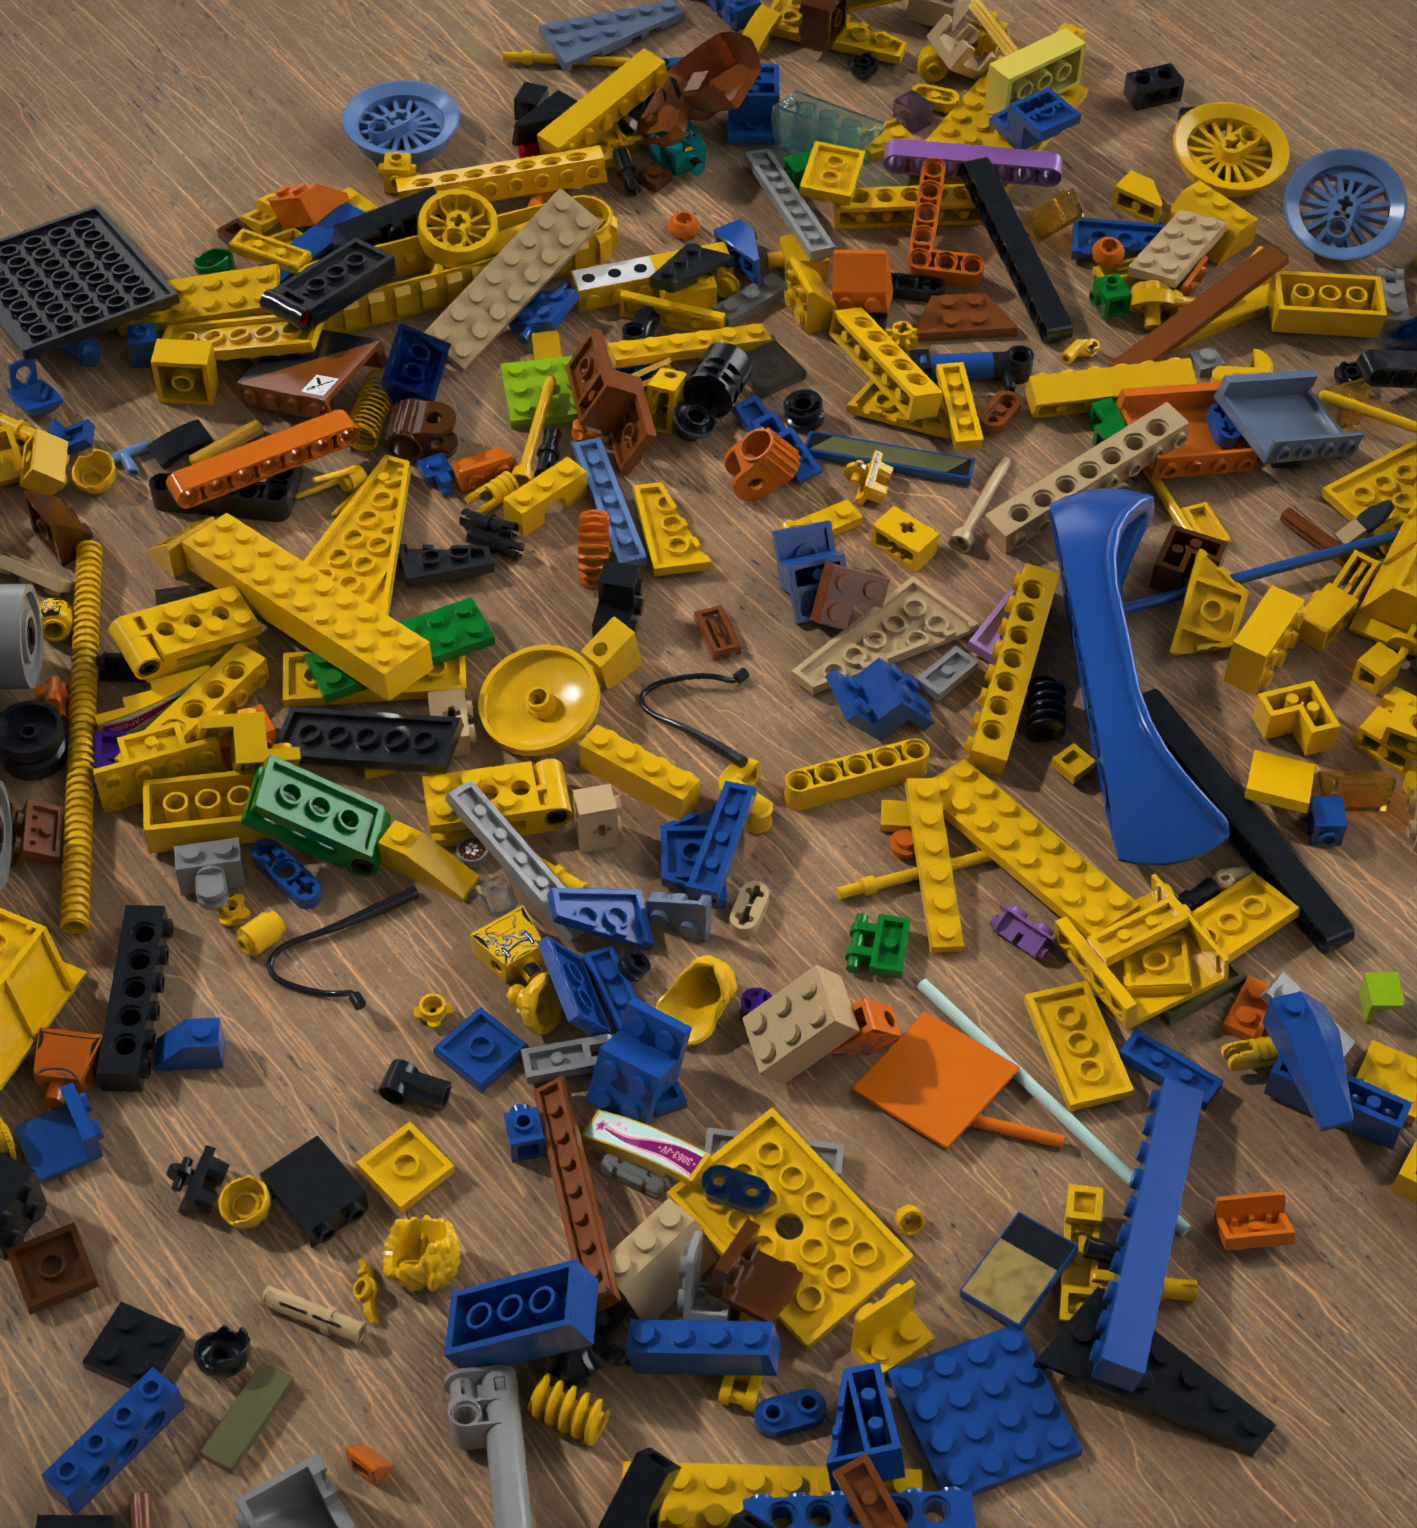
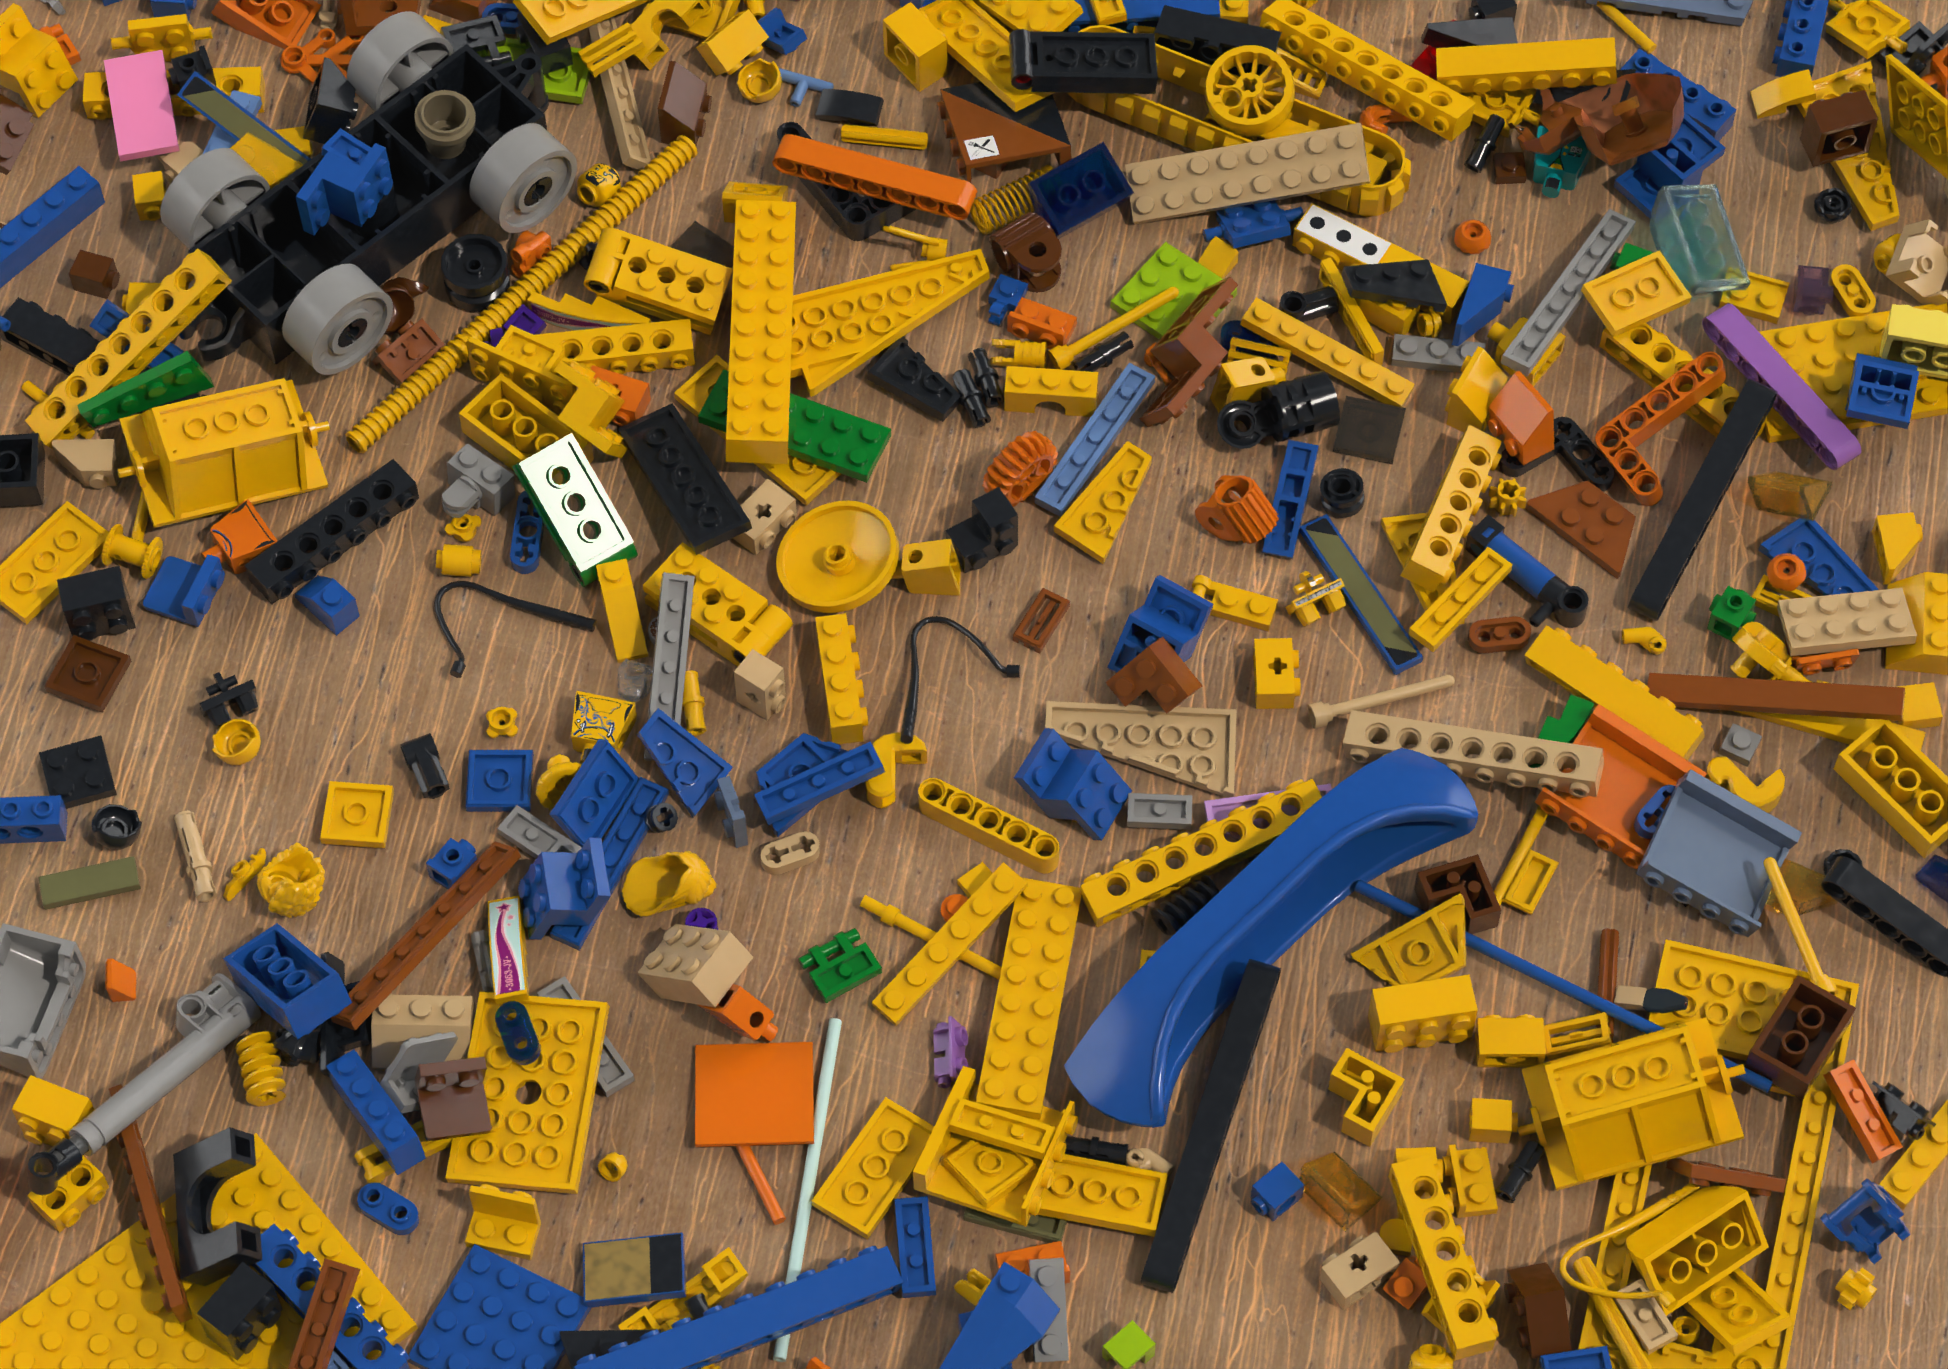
camera: 50 degrees right, 10 degrees up
(316, 1191) = (283, 775): black panel -> none
(865, 1425) = (404, 1261): blue wedge -> none
(1280, 781) = (1279, 1128): yellow tile -> none

